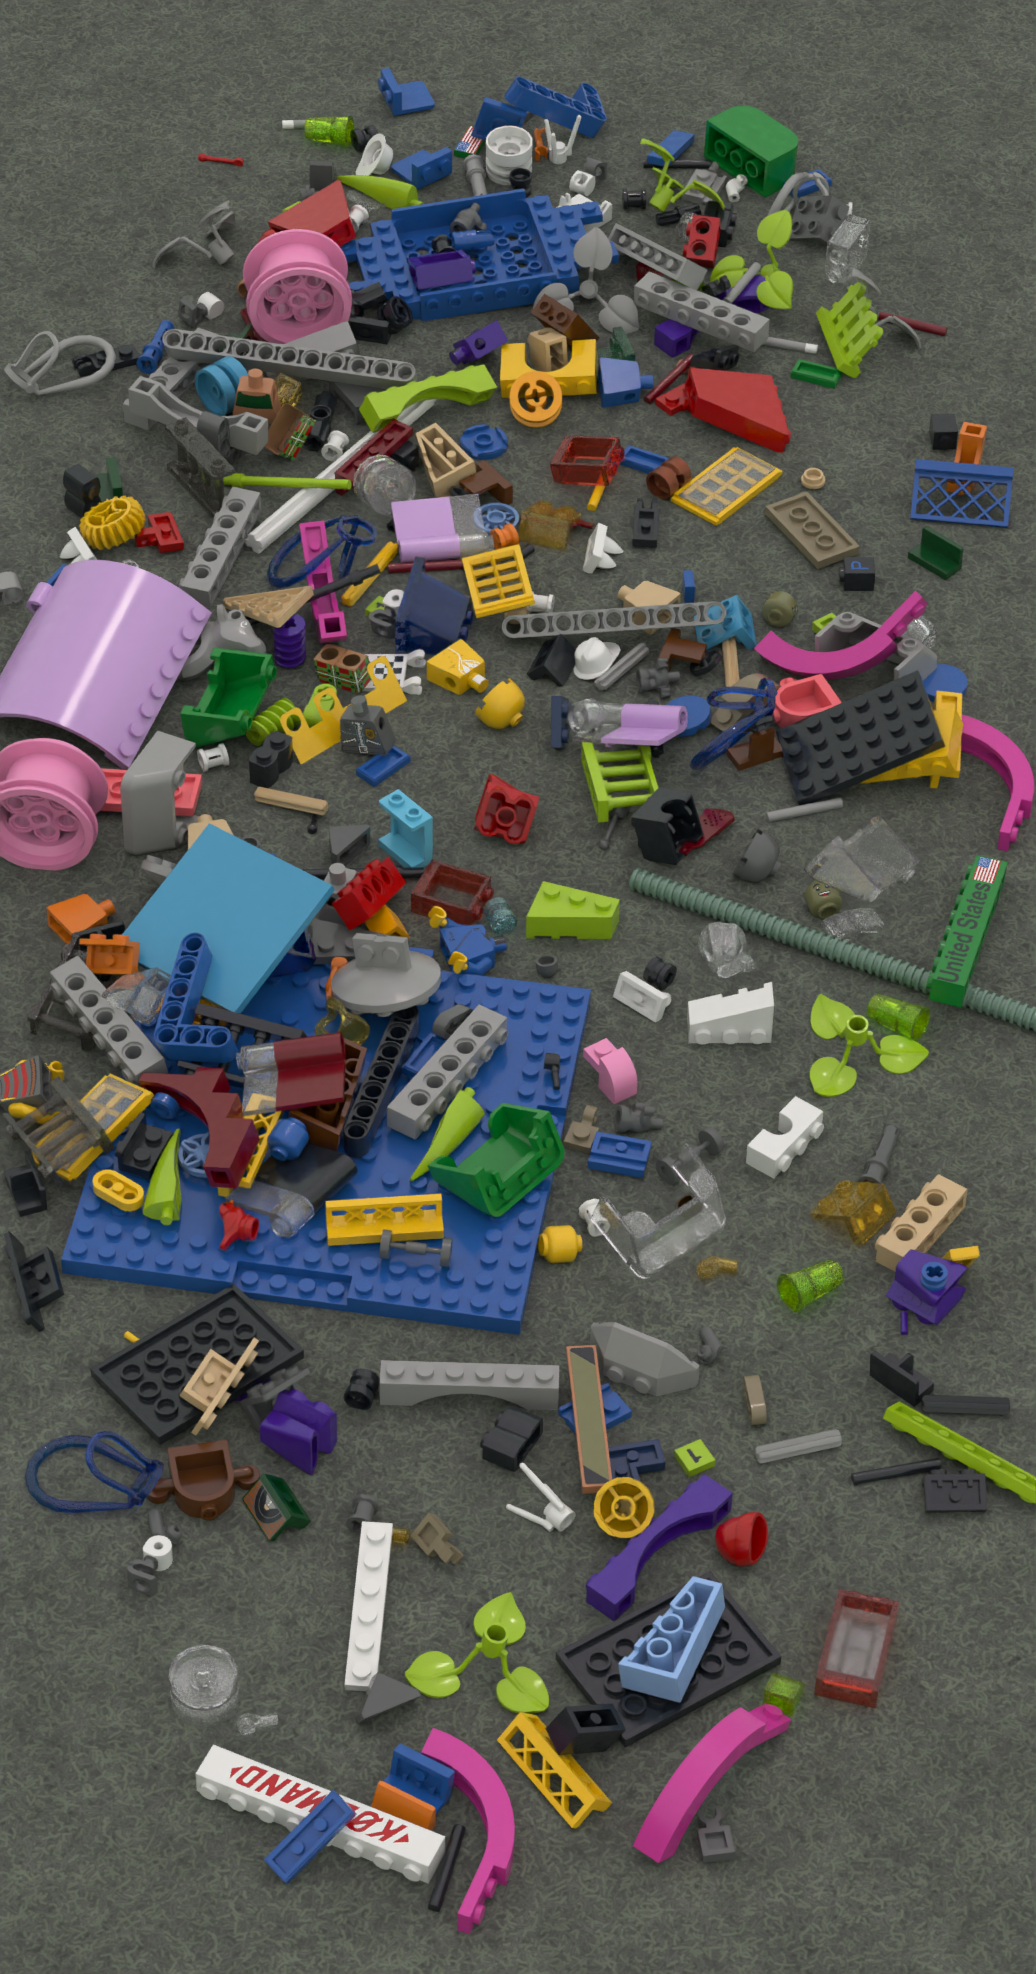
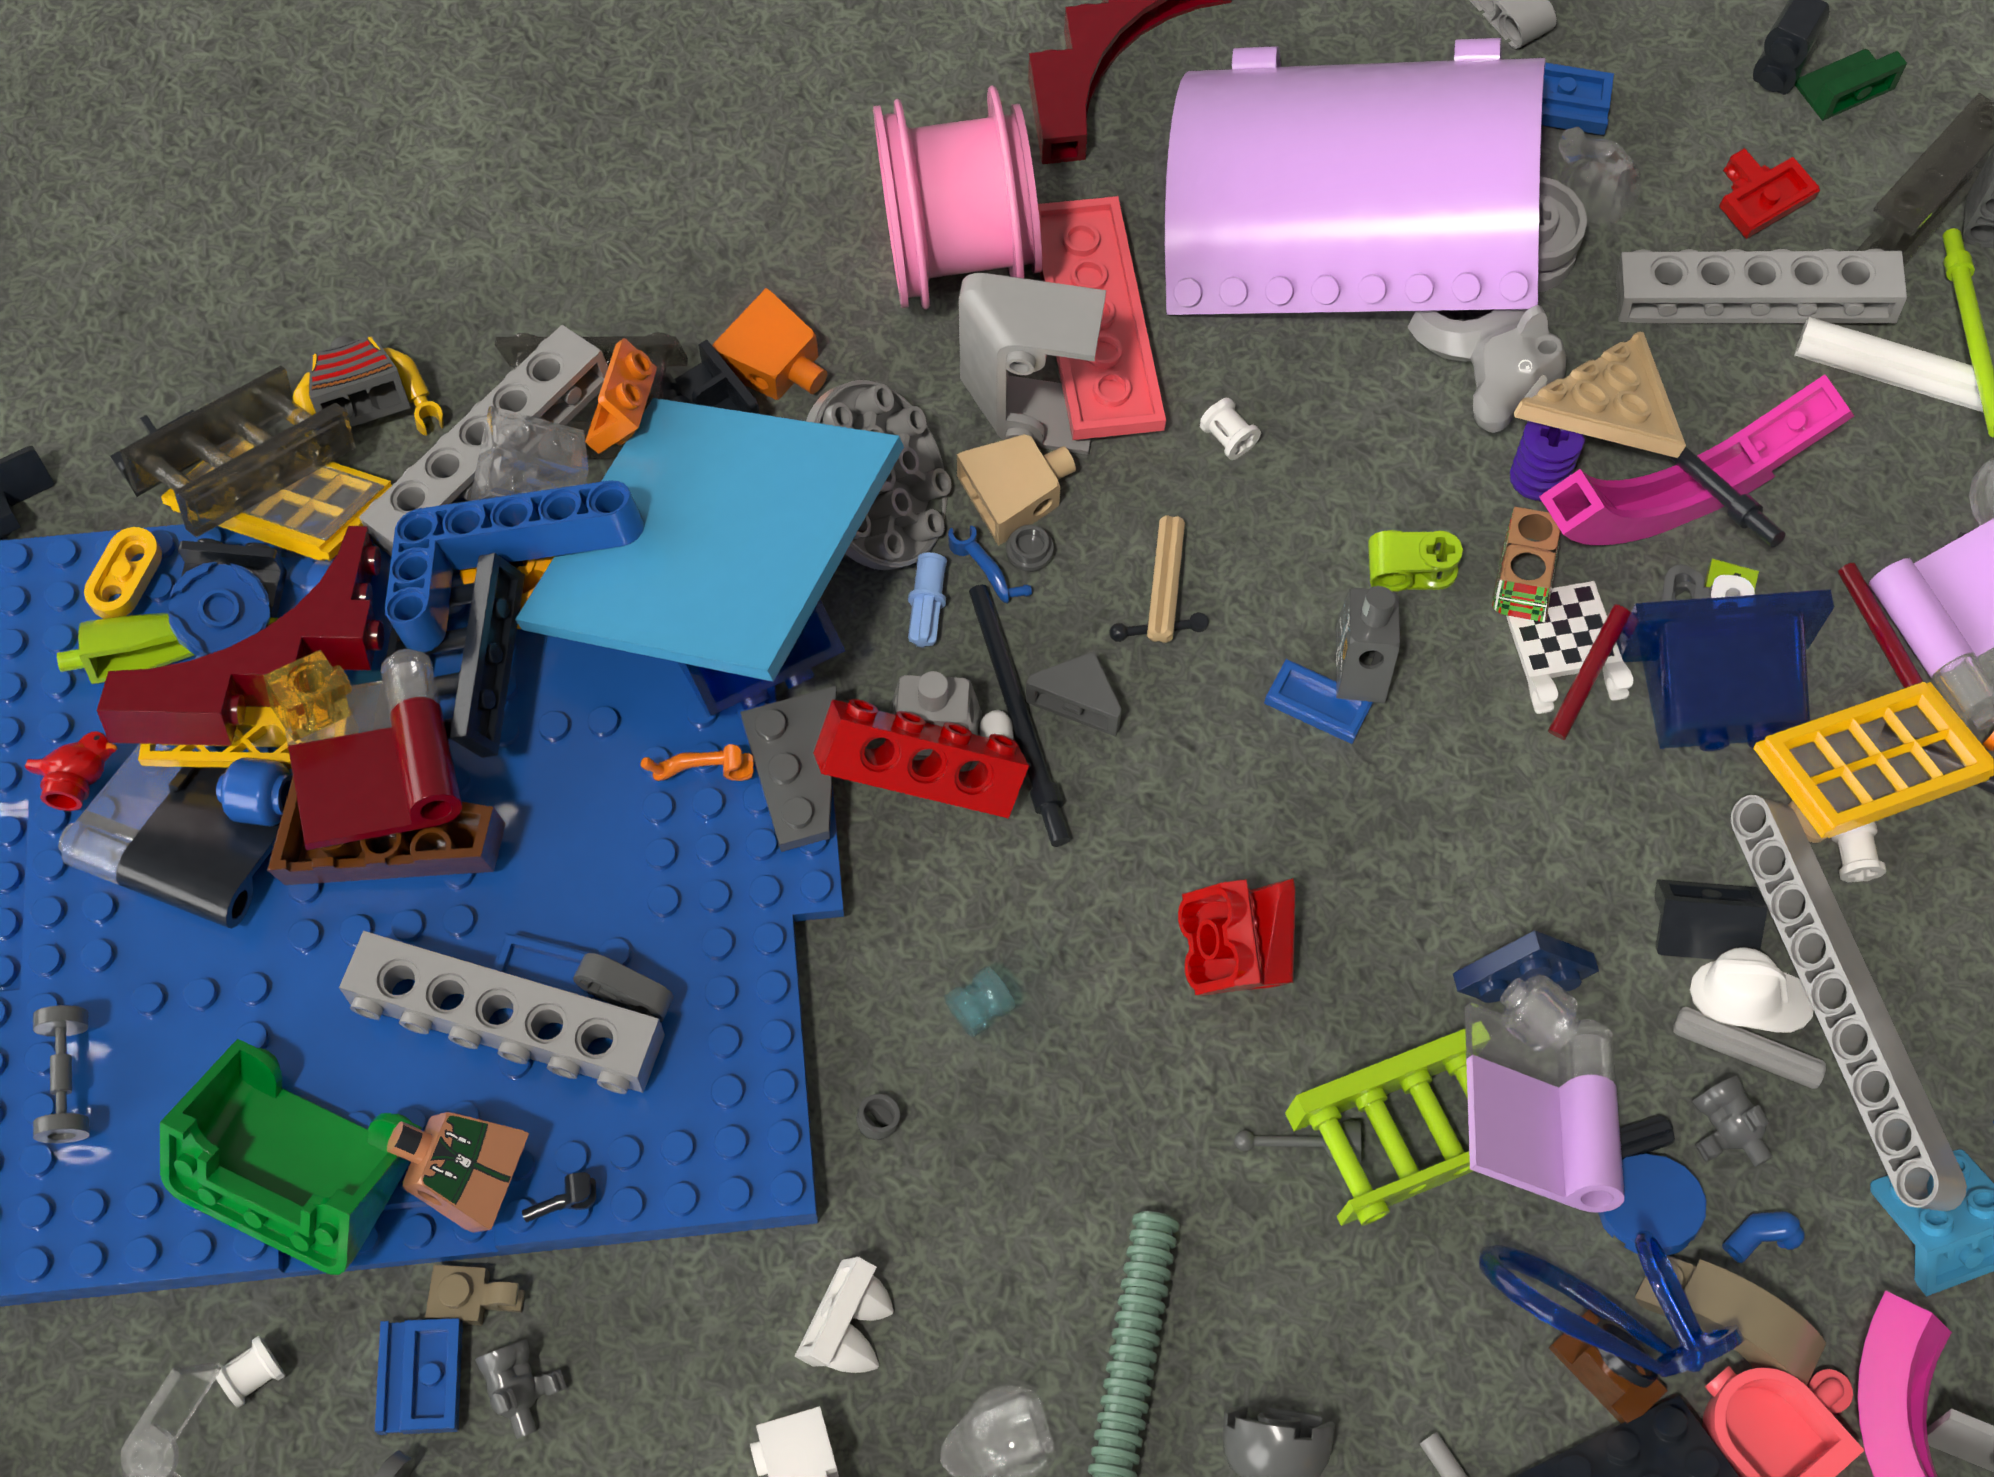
camera: 75 degrees right, 20 degrees up
(76, 548) = (1660, 97): white tile -> none
(112, 522) = (1740, 109): yellow gear -> none
(168, 1142) = (217, 607): none -> blue tile
(230, 698) = (1350, 406): green windscreen -> none
(252, 1089) = (308, 694): none -> clear yellow brick
(269, 721) = (1343, 495): lime piece -> none
(271, 759) = (1240, 514): black brick -> none
(314, 740) = (1487, 654): yellow piece -> none
(344, 570) = (1815, 484): clear blue animal -> none
(351, 1025) = (561, 819): clear yellow piece -> none
(363, 1228) = (117, 1007): yellow fence -> none
(380, 1082) = (439, 892): black beam -> none
(383, 558) = (1823, 543): yellow axle -> none
(385, 976) = (684, 846): light grey bracket -> none
(387, 923) = (877, 819): light orange brick -> none
(410, 833) = (1114, 775): medium azure panel -> none
(412, 666) = (1589, 672): none -> dark red bar
(453, 1128) = (386, 1063): lime piece -> none
(456, 878) = (1012, 856): clear red window -> none
(458, 669) = (1611, 756): yellow torso -> none
(466, 946) = (870, 967): blue torso -> none
(502, 706) = (1530, 859): yellow cylinder -> none
(527, 1088) = (459, 1165): none -> nougat torso
(559, 1244) = (164, 1323): yellow head -> none
(571, 912) = (1015, 1120): lime wedge -> none
(615, 1070) = (607, 1307): bright pink brick -> none
(648, 595) = (1950, 1050): tan torso -> none
(659, 972) = (911, 1332): black wheel -> none
(664, 823) = (1290, 1234): black piece -> none
(689, 651) = (1824, 1162): reddish brown piece -> none
(709, 683) = (1764, 1227): none -> blue arm
(713, 823) = (1341, 1322): dark red piece -> none
(730, 661) = (1831, 1261): tan axle -> none

